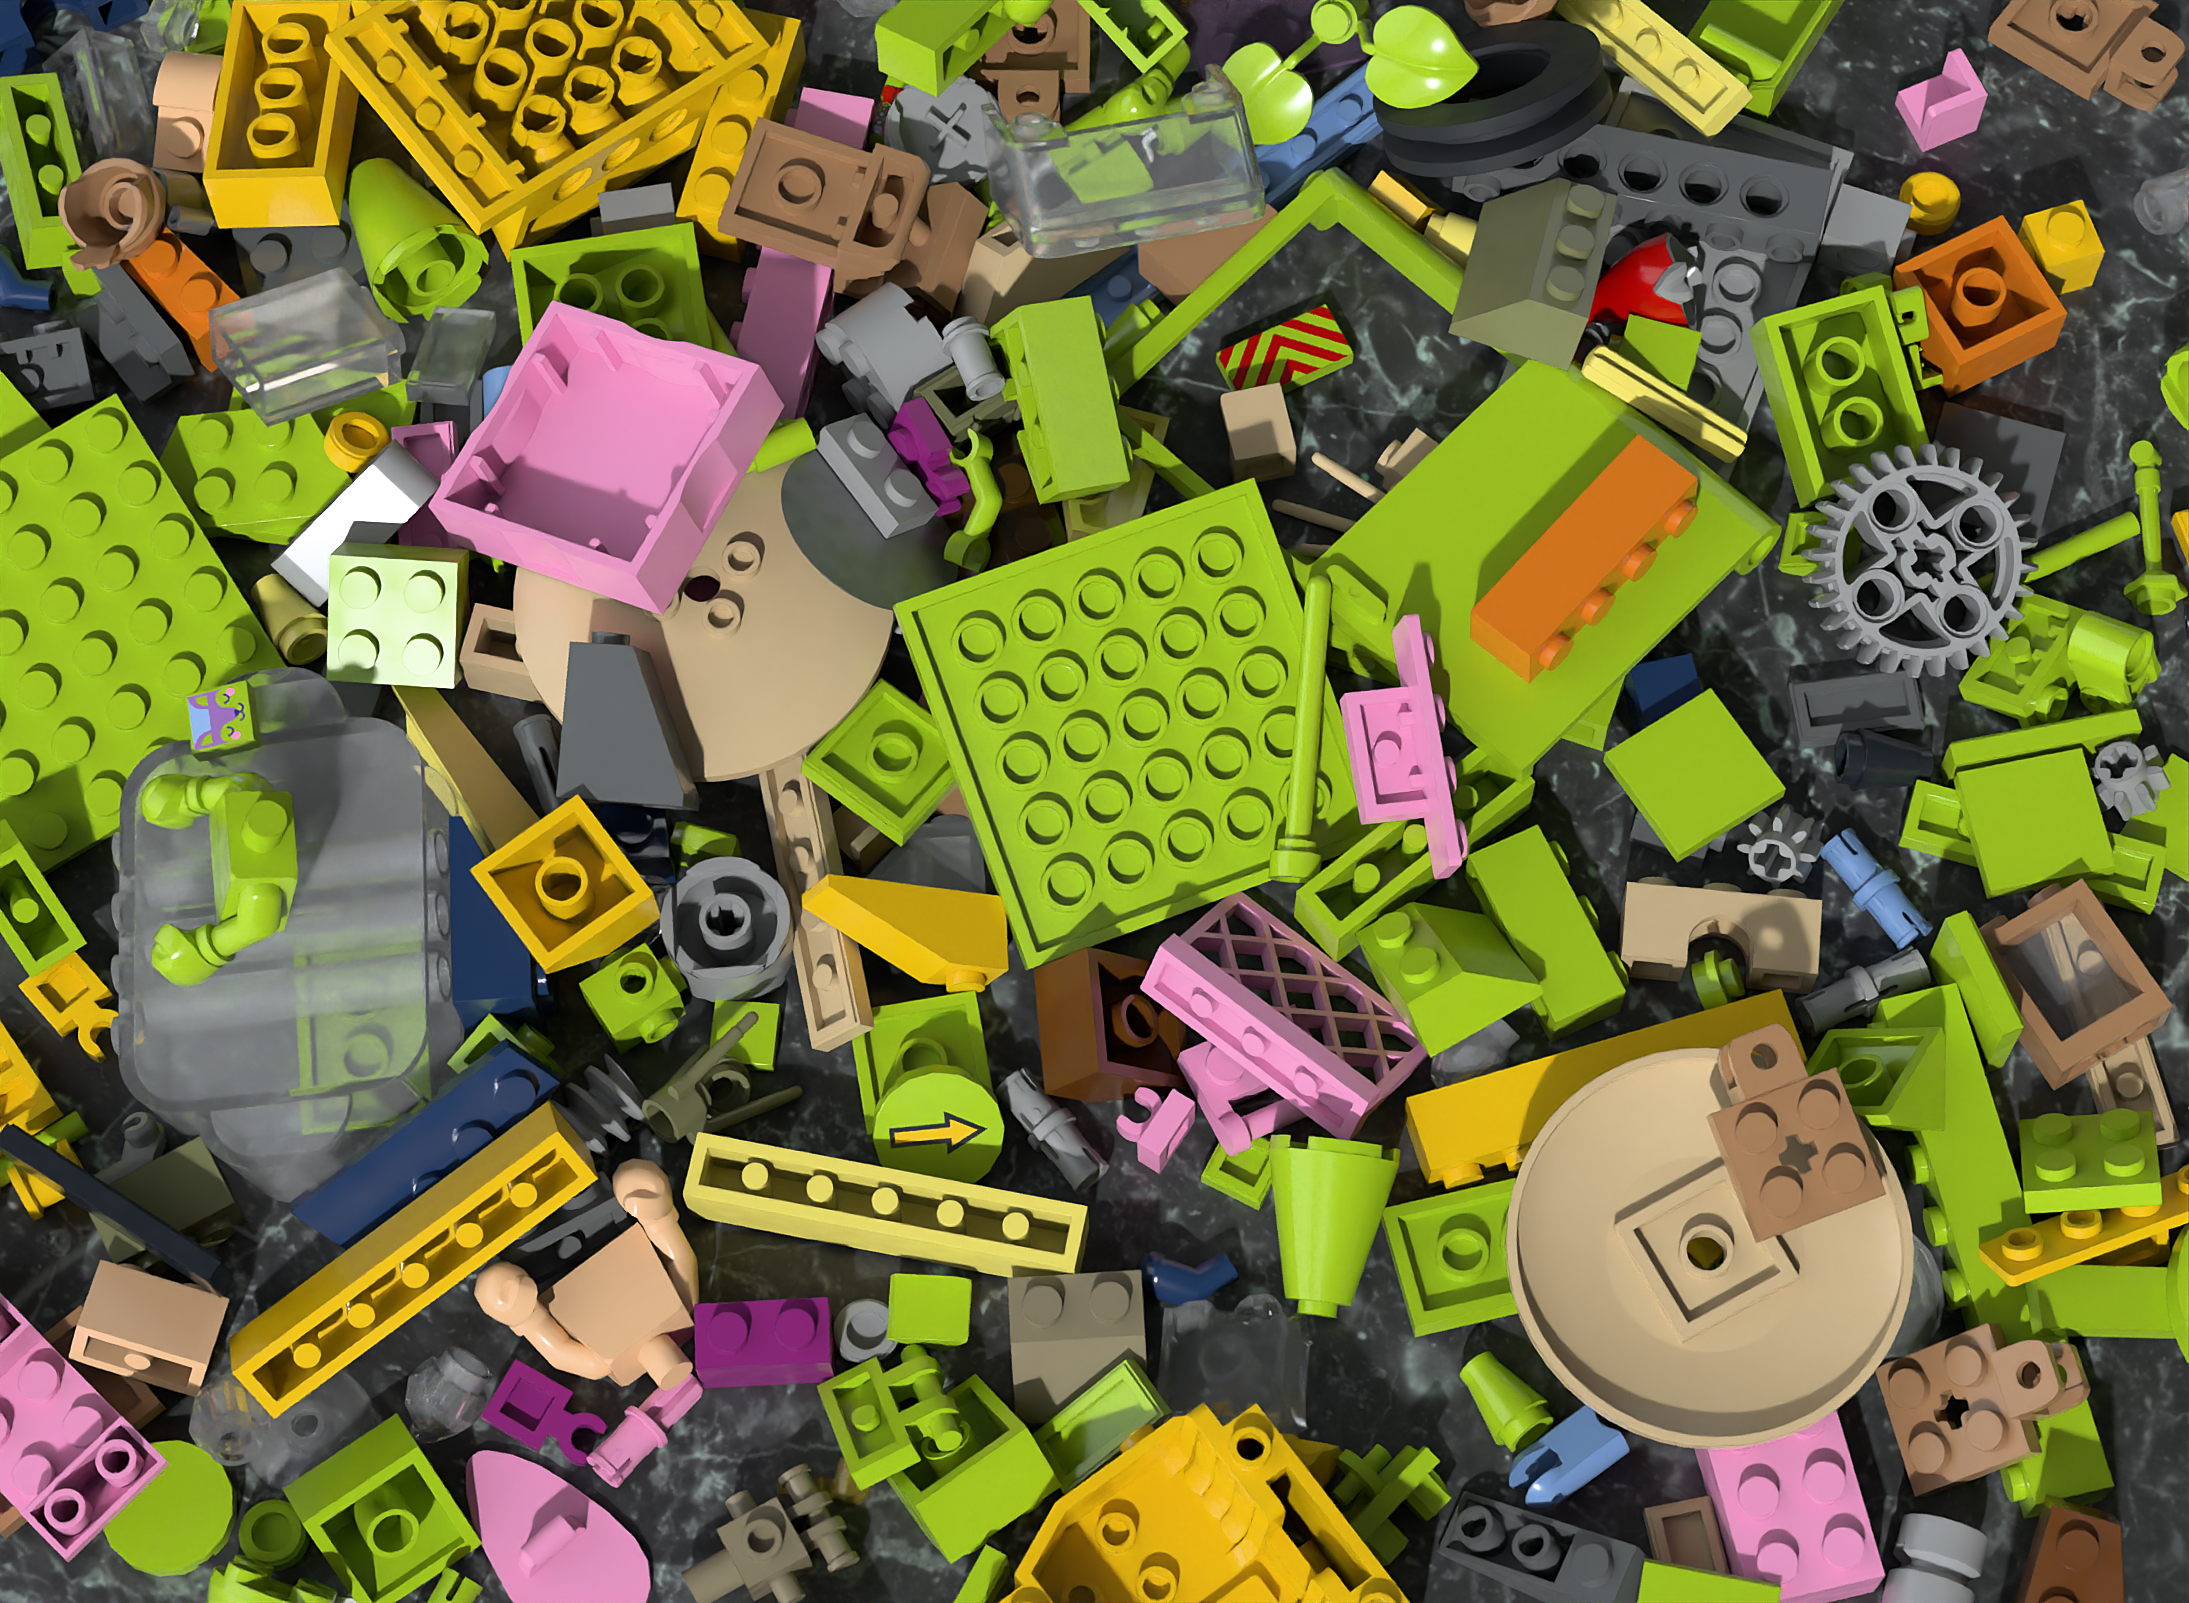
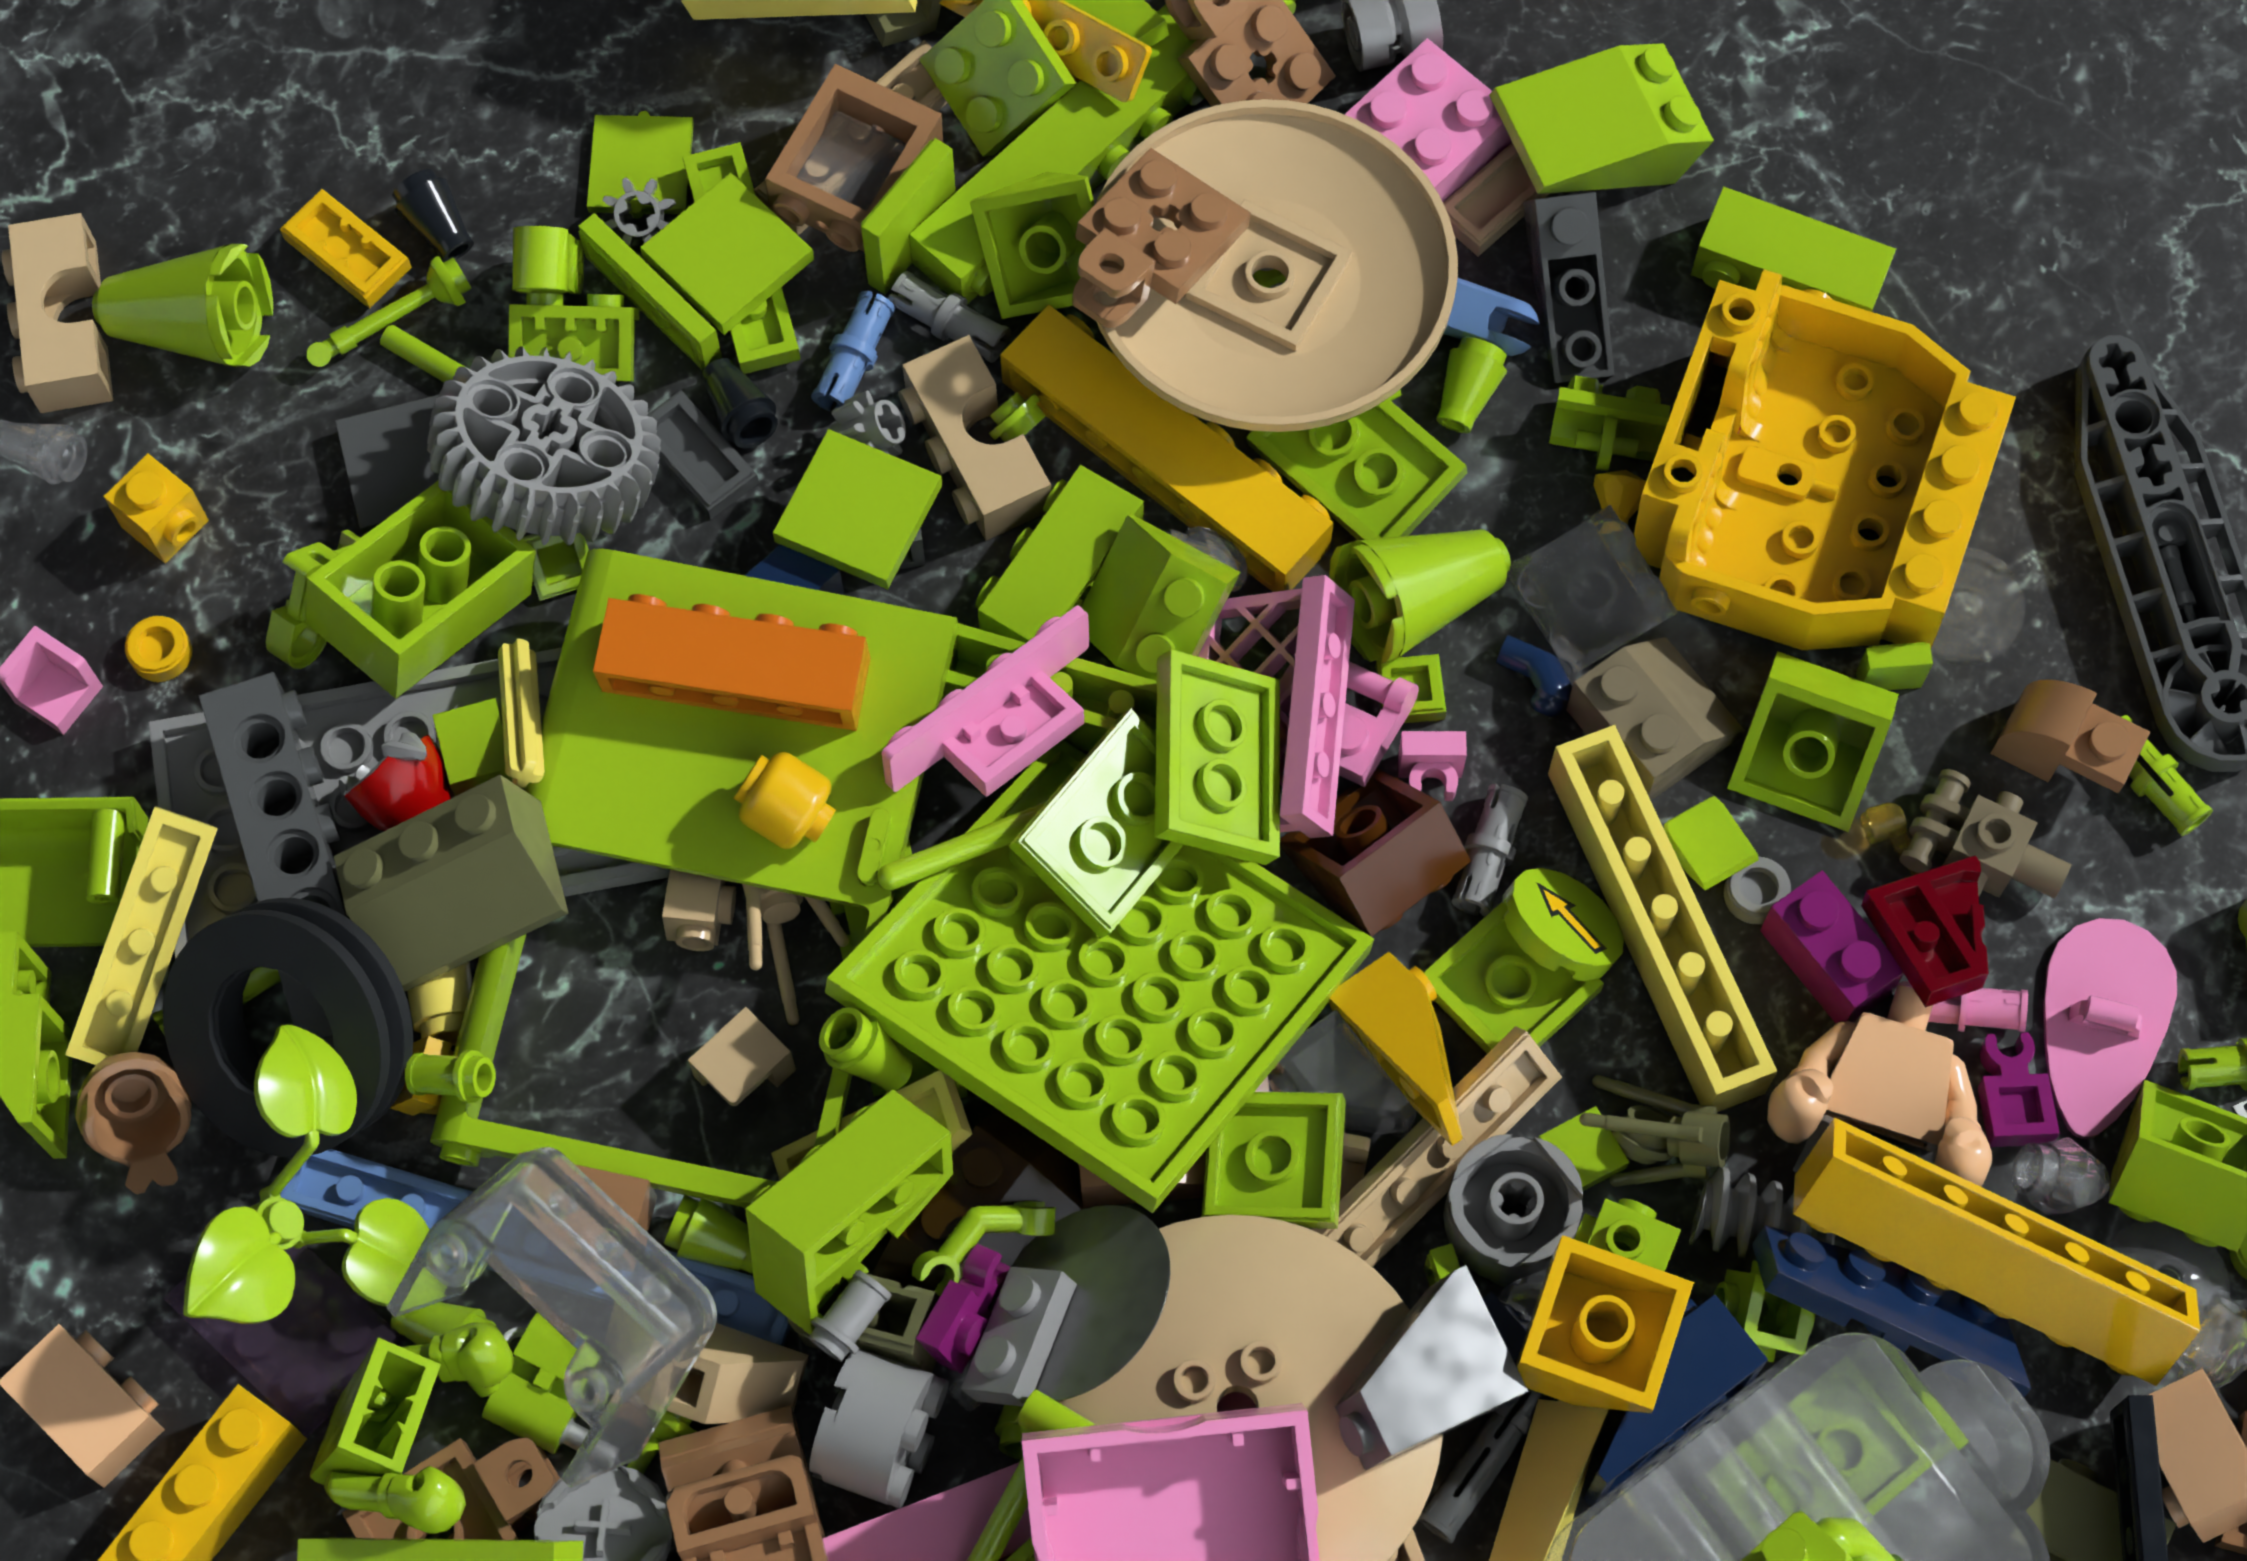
camera: 125 degrees left, 0 degrees up
(711, 1418) = (1934, 929): none -> dark red wing
(873, 1429) = (1837, 822): lime plate -> none
(1096, 1423) = (1708, 655): lime tile -> none
(1185, 477) = (863, 1049): none -> lime cone
(1253, 794) = (1098, 828): none -> lime tile
(1258, 911) = (1217, 758): none -> lime plate
(1287, 353) = (643, 1096): tile -> none
(1363, 197) = (462, 1076): none -> lime pin
(1434, 534) = (785, 800): none -> yellow head
(1866, 233) = (223, 656): light grey brick -> none
(1981, 305) = (243, 529): orange brick -> none

